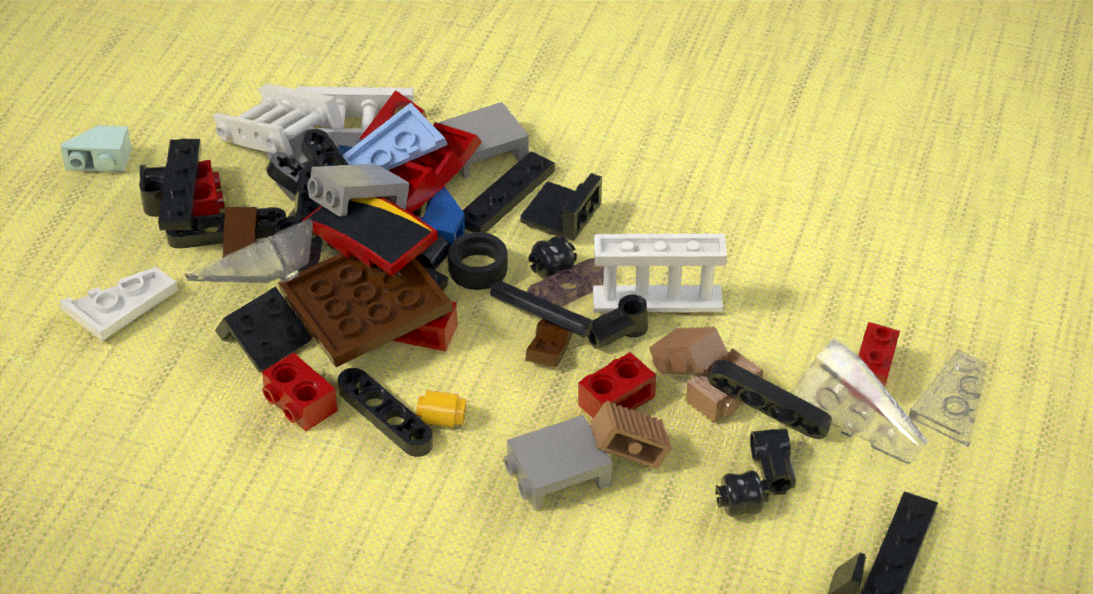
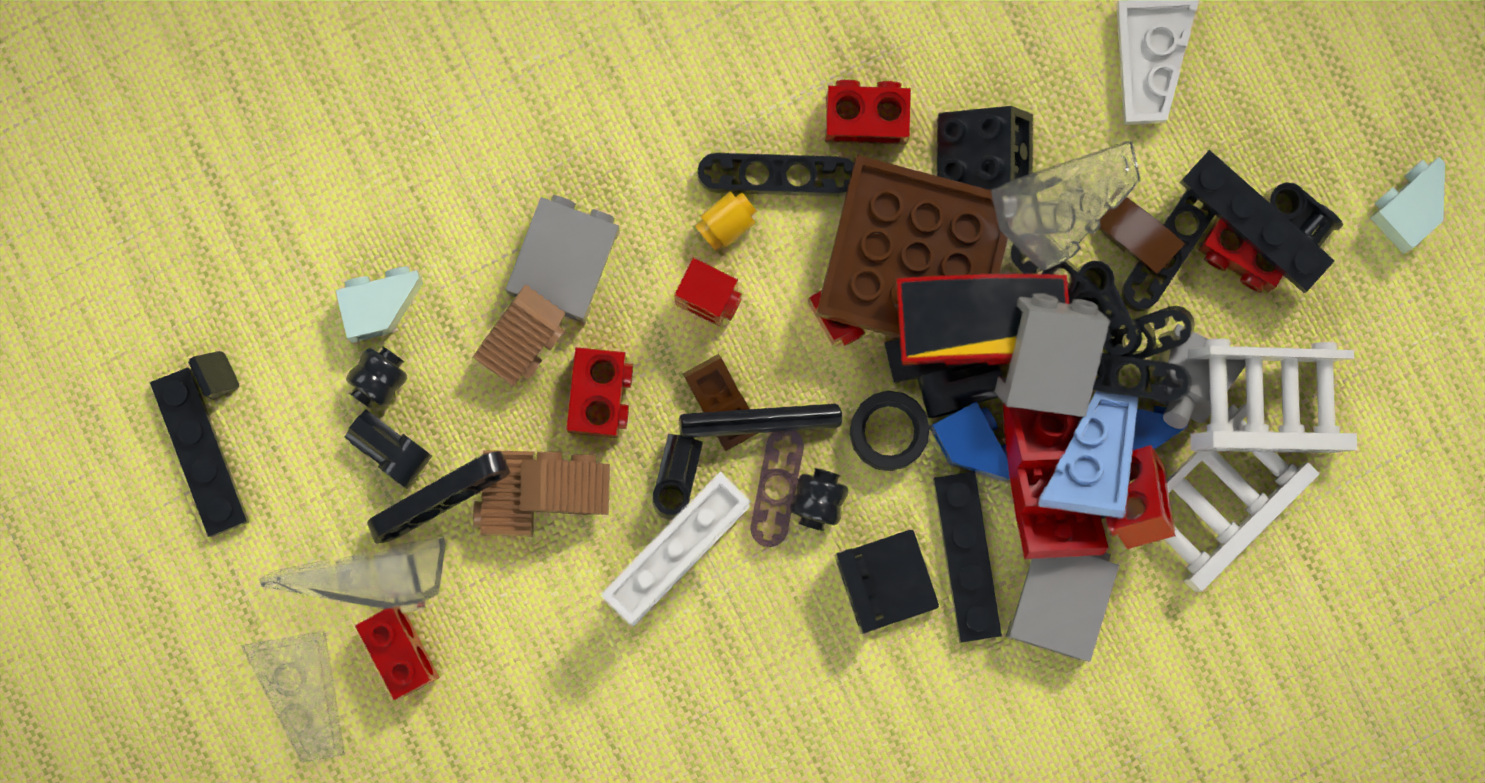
camera: 130 degrees right, 40 degrees up
(497, 372) = (708, 293): none -> red brick
(698, 528) = (377, 306): none -> light aqua slope

